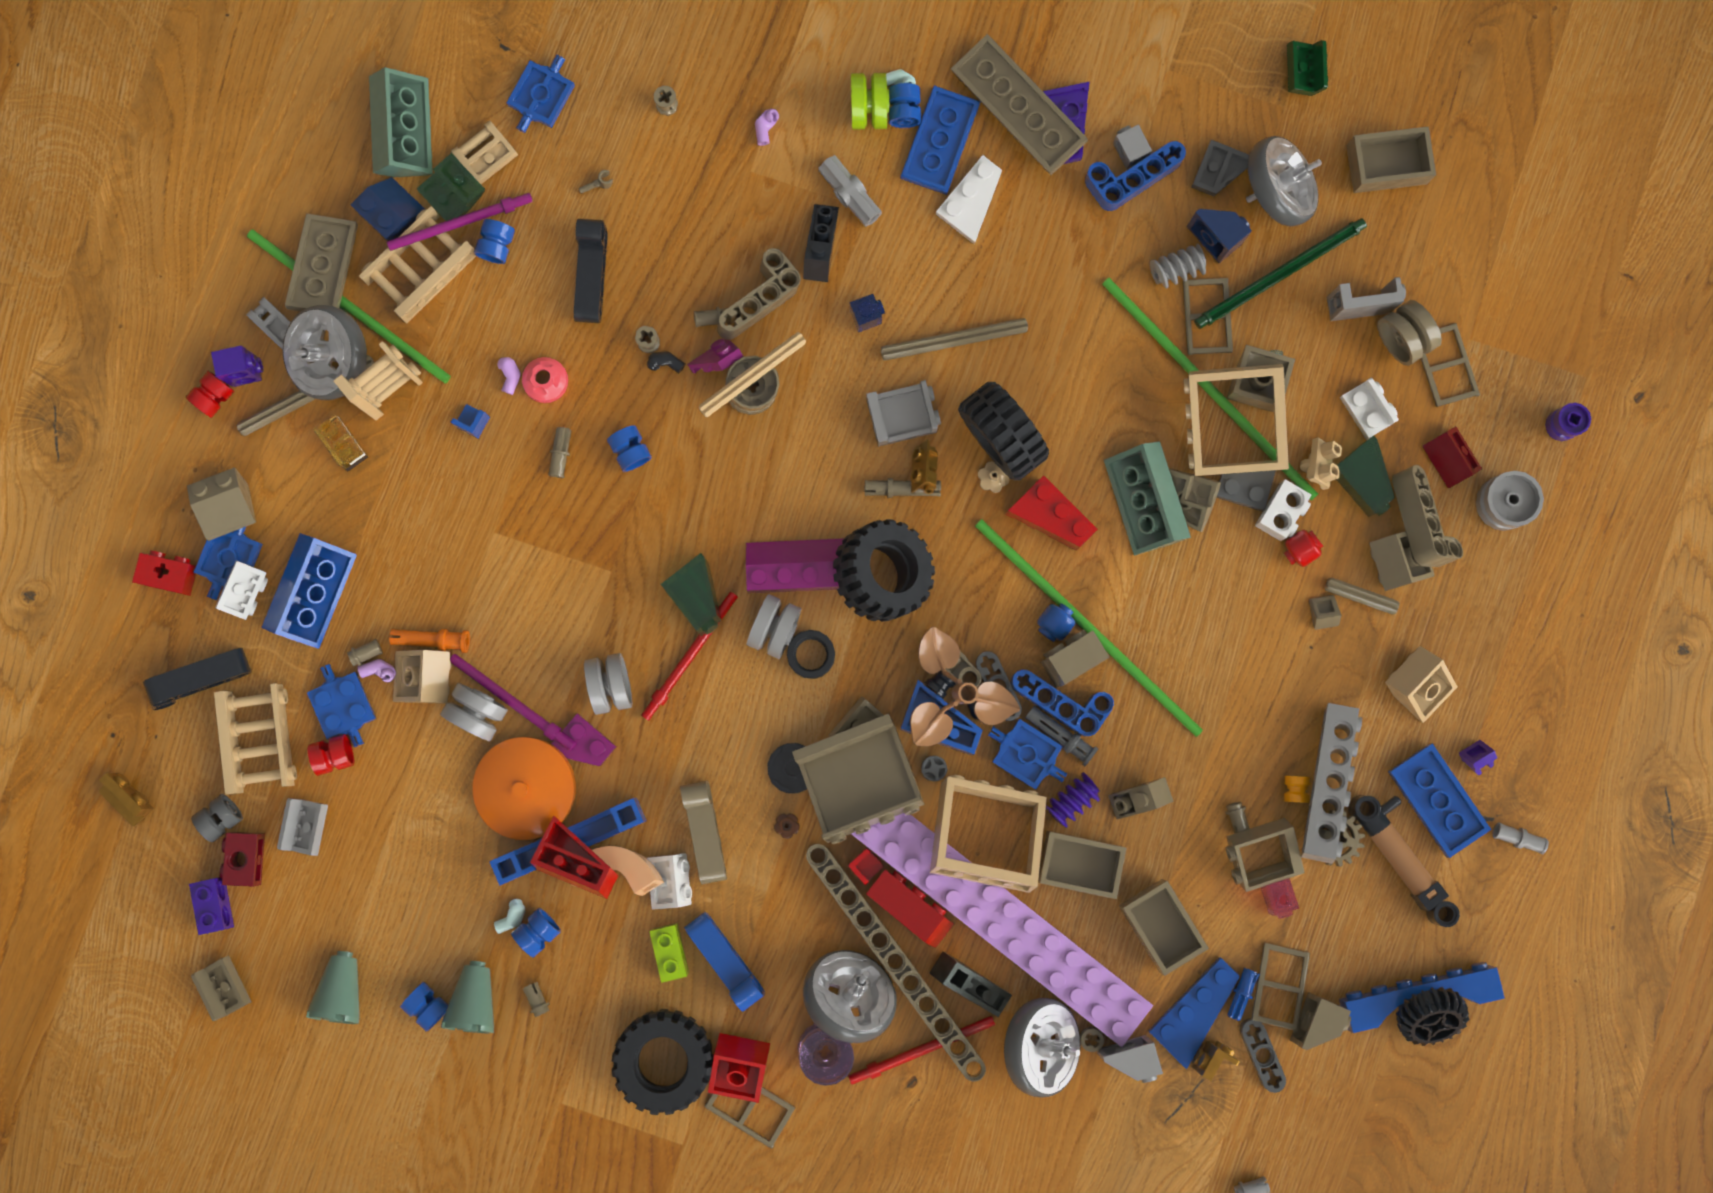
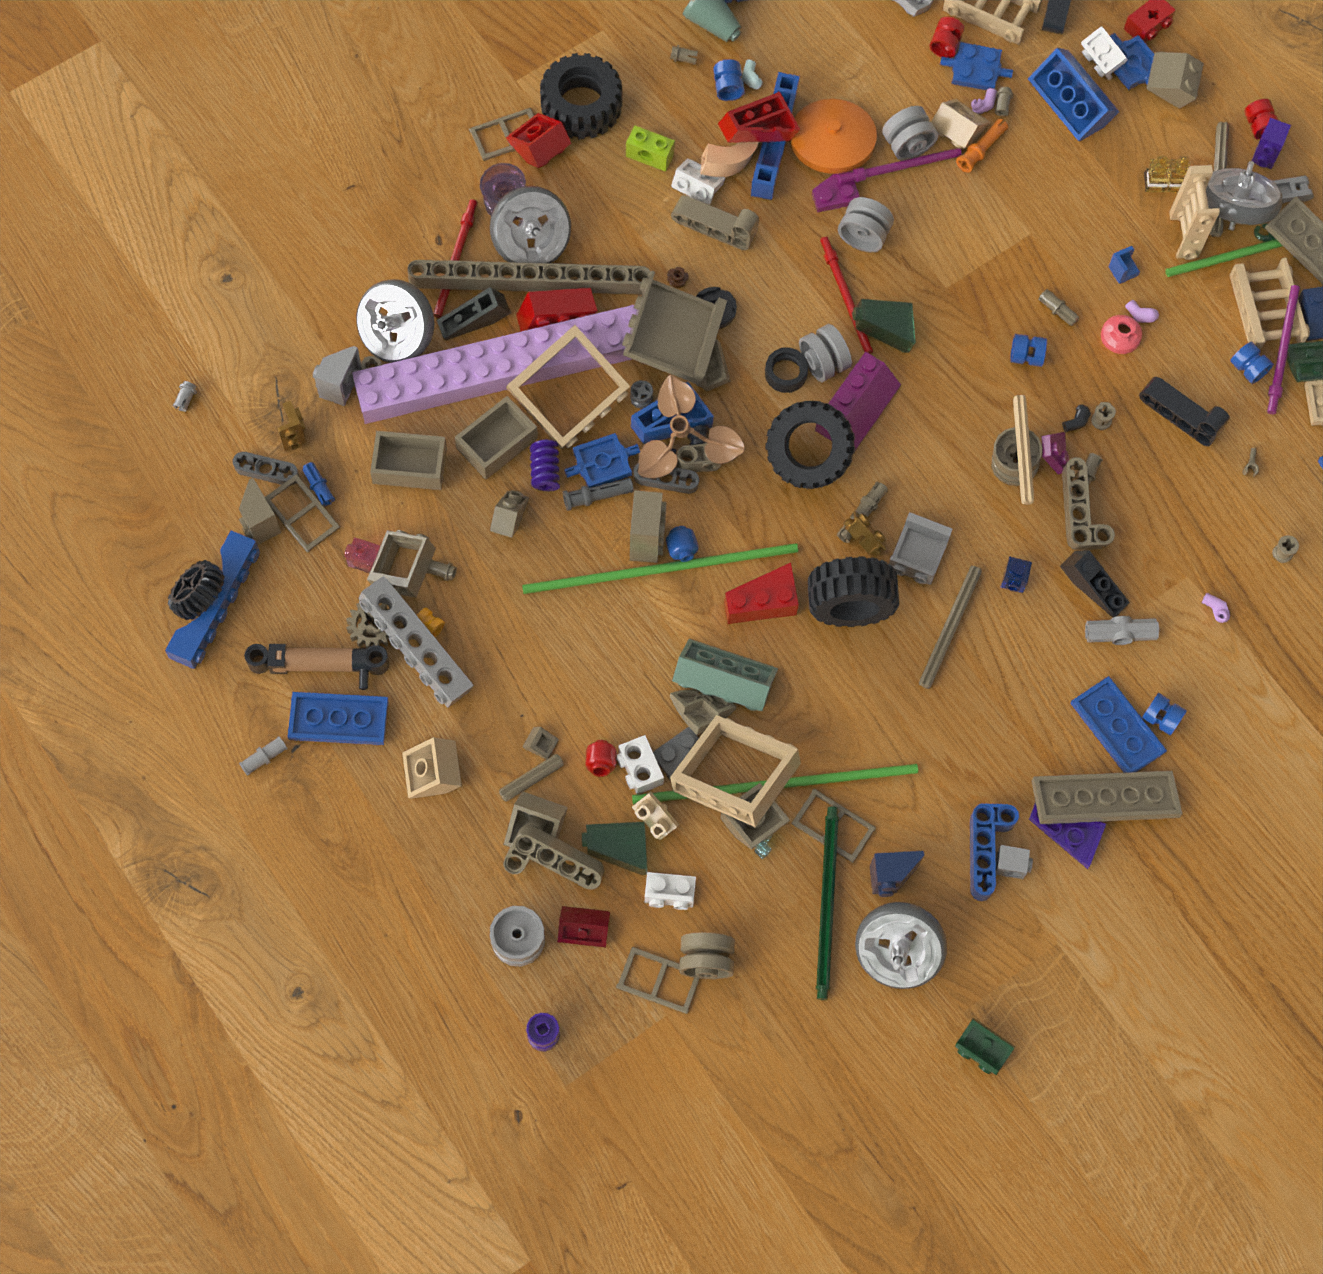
camera: 125 degrees right, 15 degrees down
(726, 962) = (614, 178): blue beam -> none
(865, 865) = (608, 299): red panel -> none
(869, 101) = (1186, 684): lime wheel -> none
(899, 76) = (1189, 731): light aqua arm -> none
(970, 199) = (1054, 715): white wing -> none
(1058, 698) = (605, 515): blue beam -> none
(1178, 265) = (887, 825): light grey piece -> none
(1193, 1014) = (332, 446): blue wing -> none
(1219, 168) = (950, 914): dark grey wing -> none
(1344, 307) = (766, 921): light grey panel -> none
(1391, 159) = (858, 1052): dark tan piece -> none
(1478, 756) = (346, 769): dark purple tile -> none

